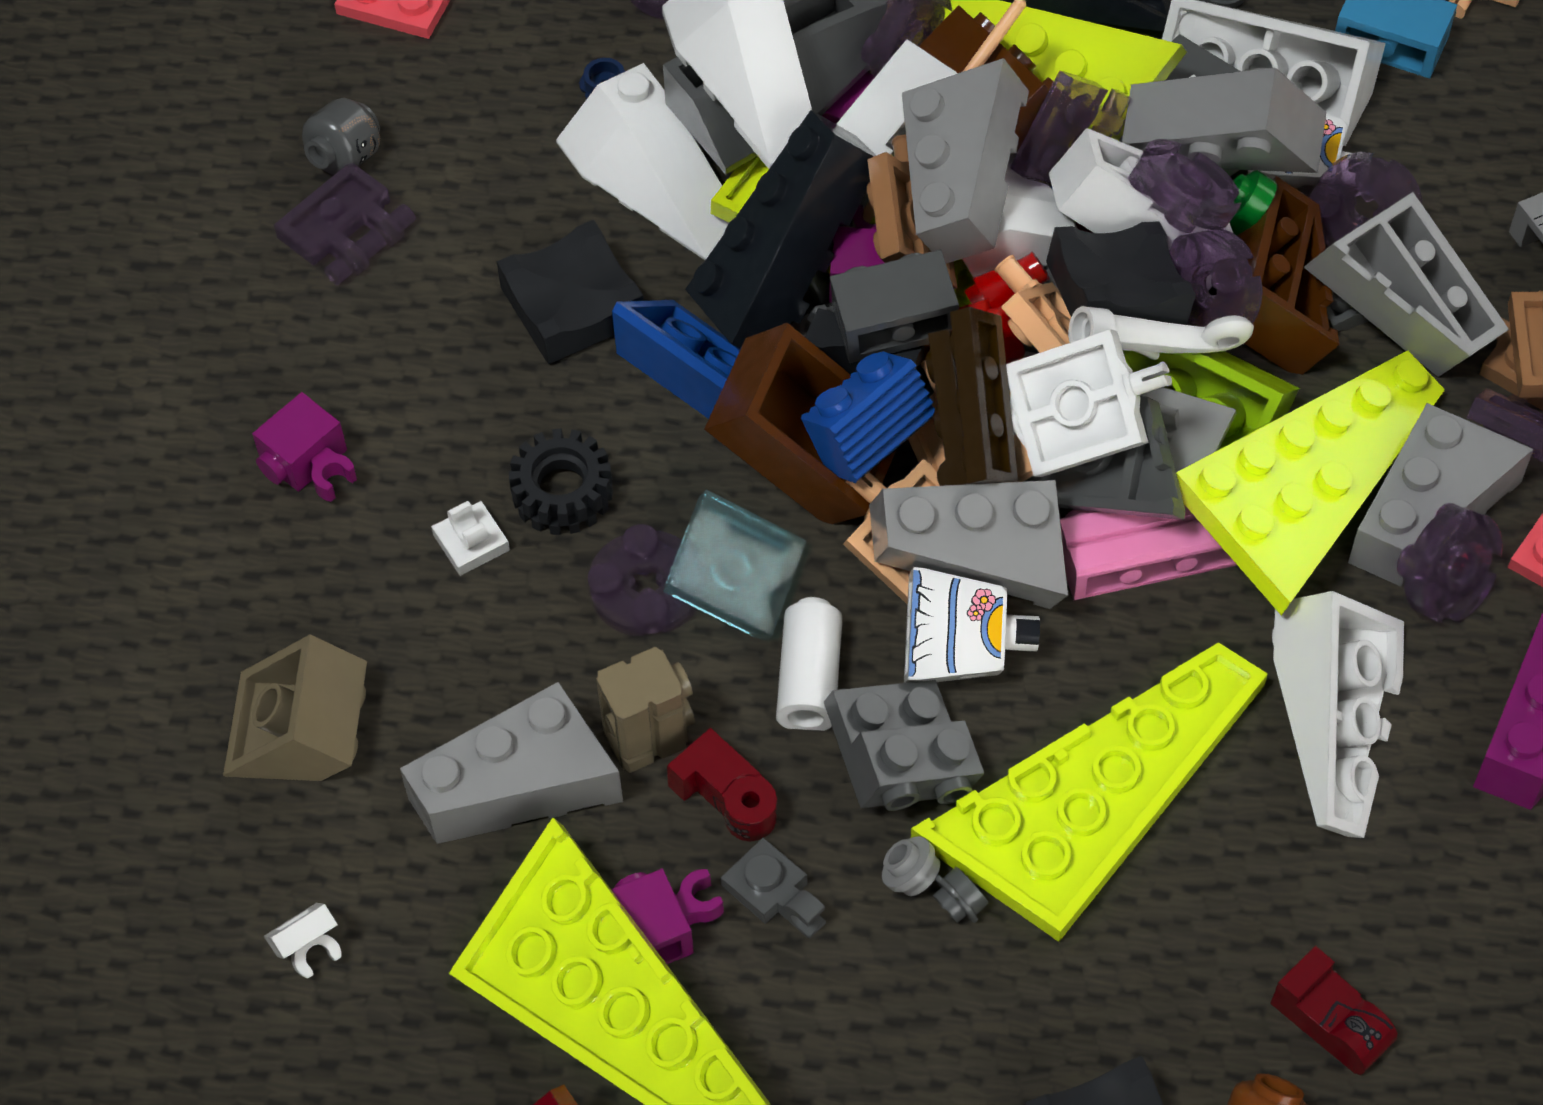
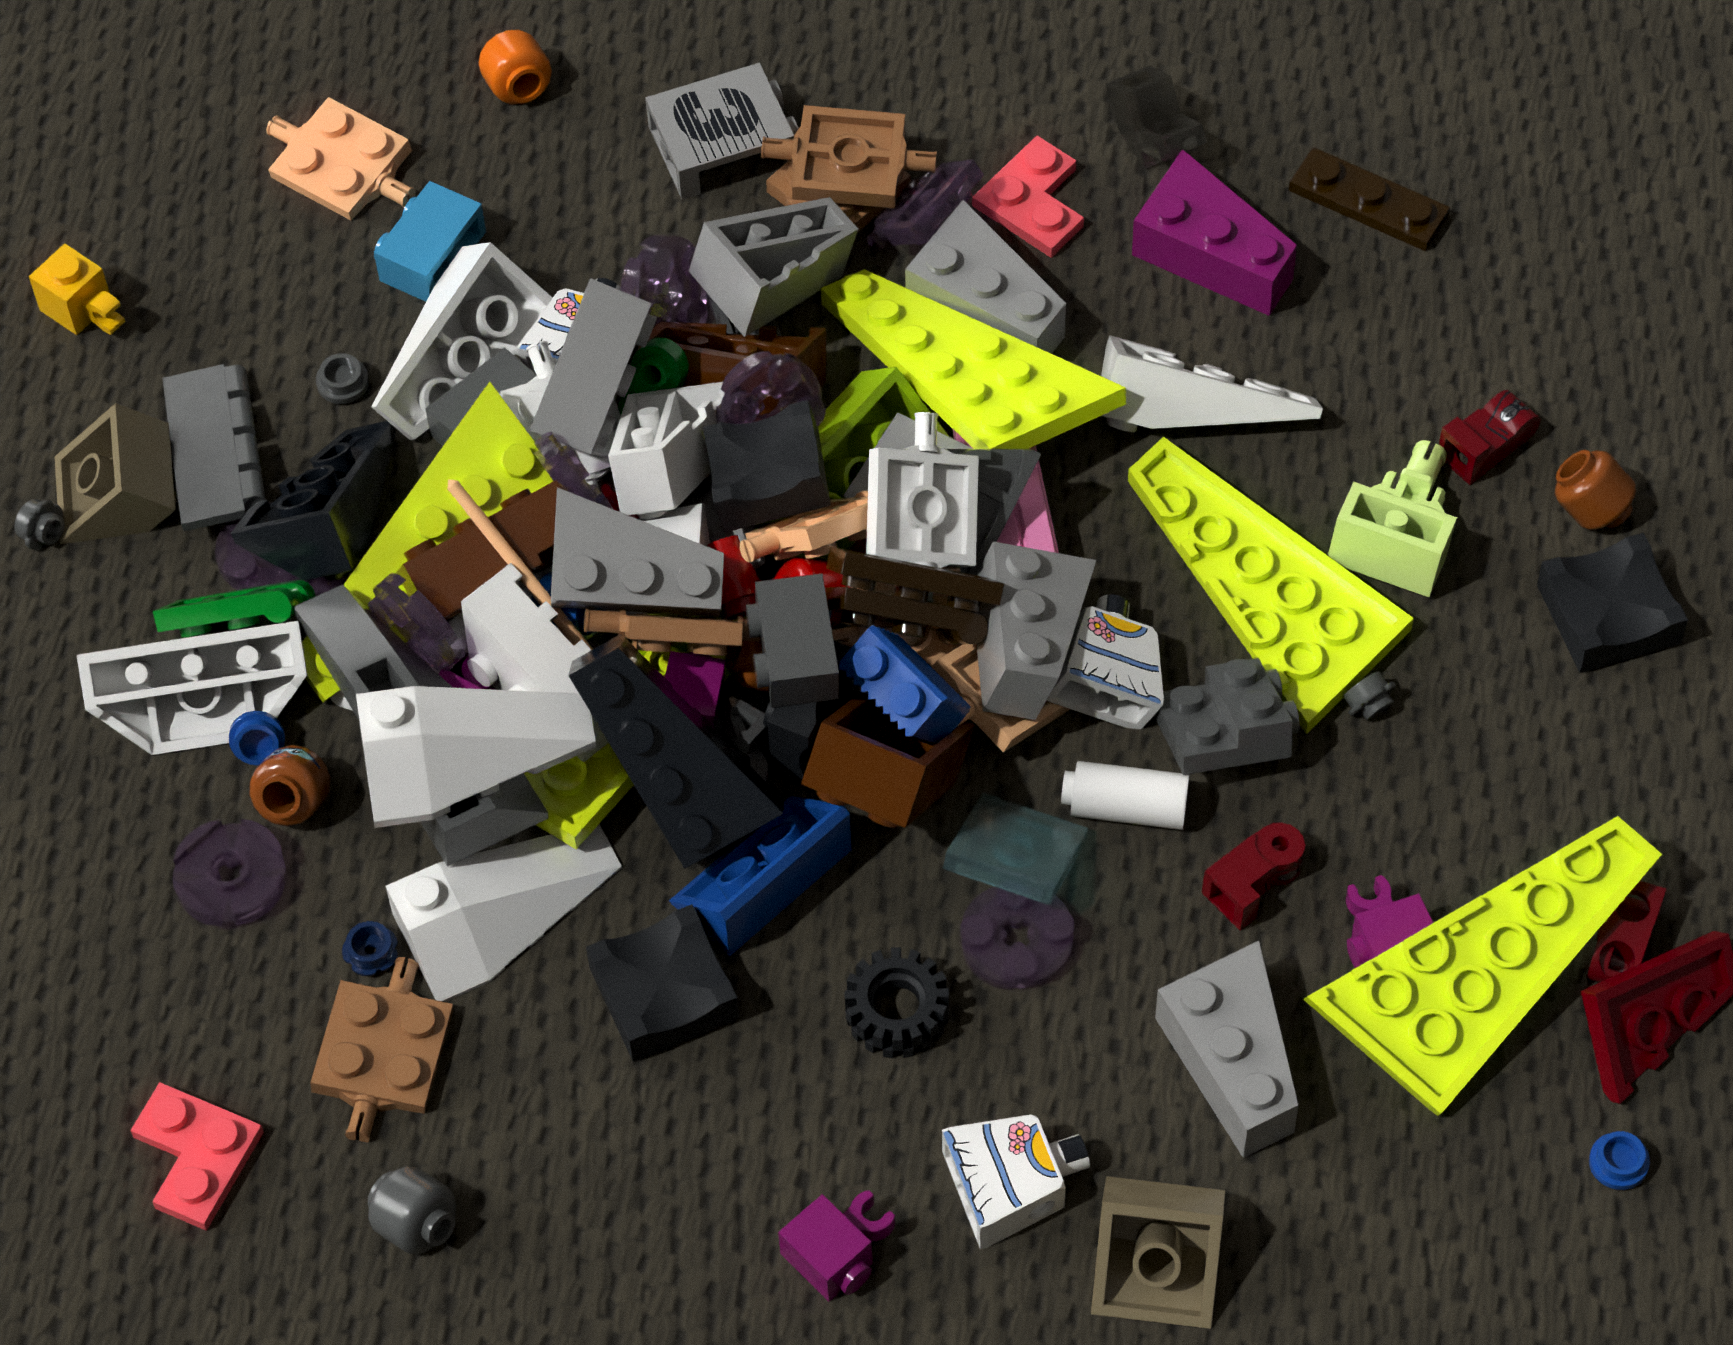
camera: 85 degrees left, 0 degrees up
(302, 933) = (1398, 1240): white tile -> none
(334, 213) = (517, 1223): clear purple plate -> none
(373, 583) = (1009, 1173): none -> white torso
(470, 537) = (950, 1093): white tile -> none
(504, 102) = (381, 1048): none -> medium nougat plate
(645, 708) = (1187, 918): dark tan brick -> none
(773, 884) = (1354, 849): dark grey plate -> none
(910, 866) = (1355, 722): light grey plate -> none
(1158, 337) = (844, 473): white plant -> none
(1187, 912) = (1397, 530): none -> yellowish green brick
(1188, 189) = (677, 391): clear purple plate -> none
(1454, 540) = (1060, 272): clear purple plate -> none

